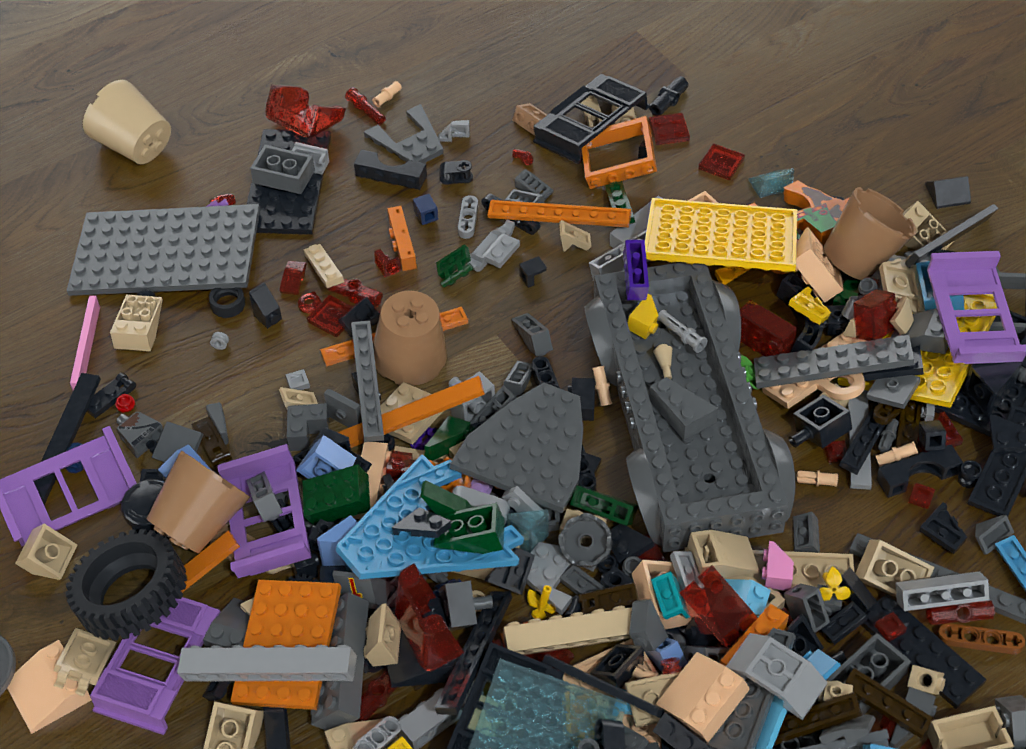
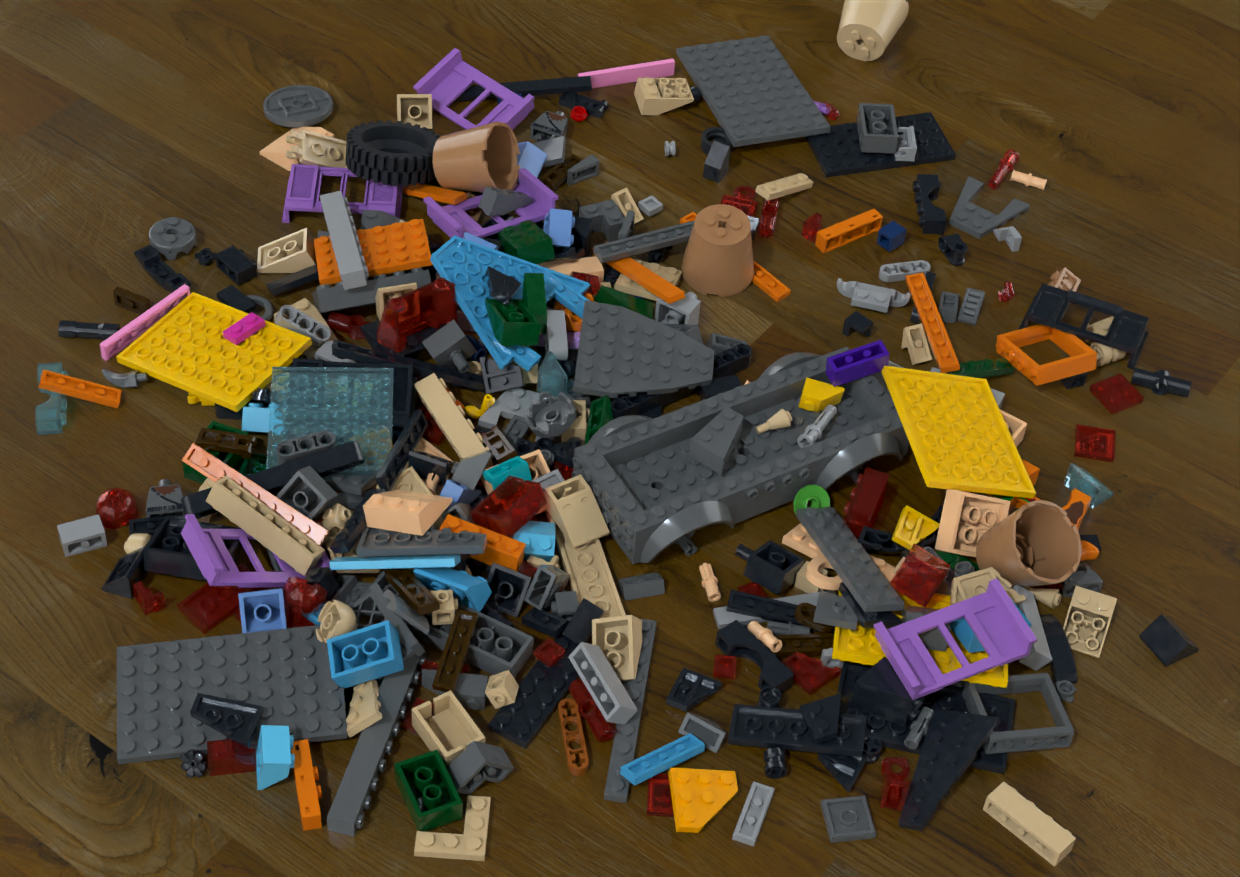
camera: 65 degrees right, 5 degrees down
(290, 109) = (963, 124): clear red windscreen -> none
(292, 277) = (764, 173): clear red slope -> none
(454, 261) = (827, 271): dark green plate -> none
(519, 500) = (571, 357): light grey plate -> none
(533, 334) = (779, 342): dark grey slope -> none
(671, 665) = (438, 489): clear red bush -> none
(779, 568) = (581, 556): bright pink slope -> none
(779, 672) = (431, 544): light grey slope -> none
(833, 579) = (573, 594): yellow plant -> none
(903, 317) = (930, 598): tan slope -> none
(932, 435) = (793, 653): black brick -> none
(951, 236) = (1083, 635): tile -> none

